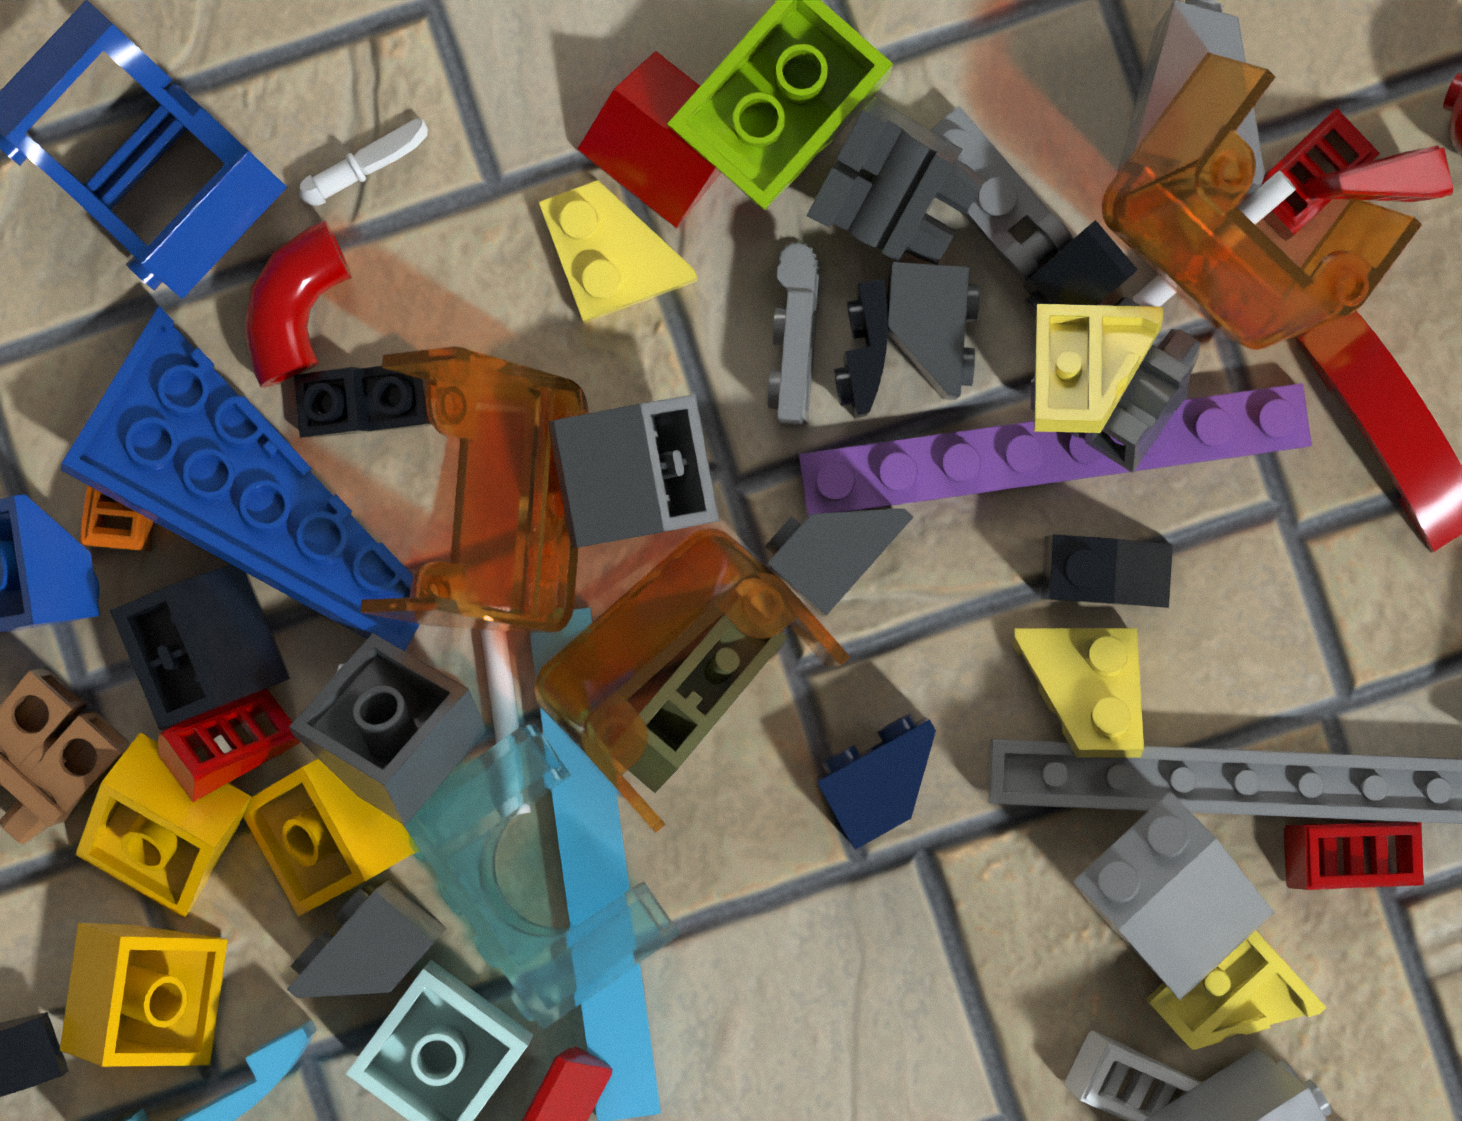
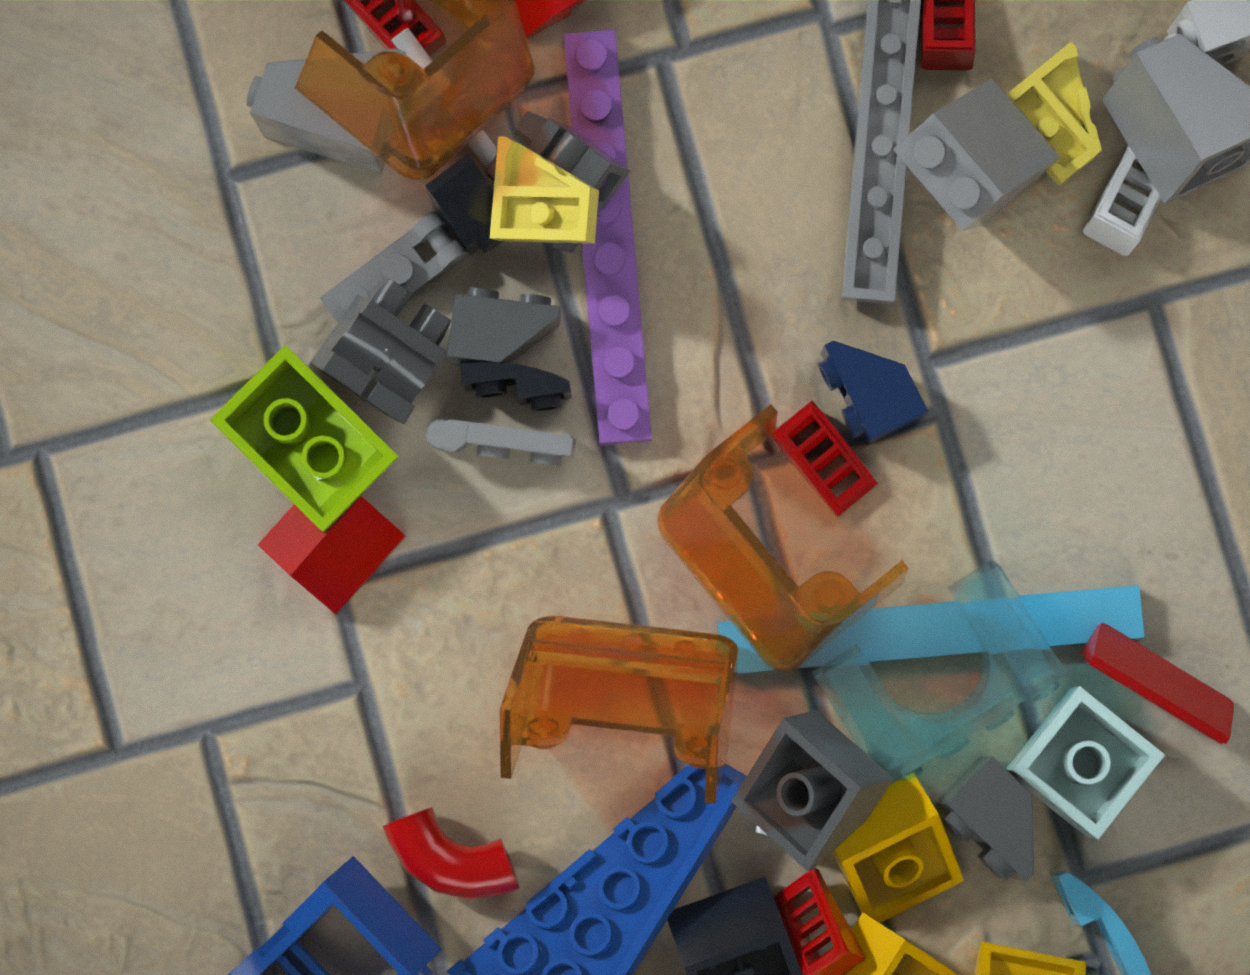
camera: 85 degrees left, 5 degrees down
(359, 401) = (535, 806): black slope -> none
(366, 161) = (335, 792): white piece -> none
(500, 685) = (781, 701): white bar -> none
(610, 252) = (422, 591): light yellow wing -> none
(633, 471) = (608, 576): dark grey slope -> none
(698, 698) = (796, 534): olive slope -> none
(832, 551) = (684, 416): dark grey slope -> none
(835, 693) = (796, 455): none -> red slope
(1090, 684) = (801, 216): light yellow wing -> none
(1106, 571) = (708, 200): black slope -> none

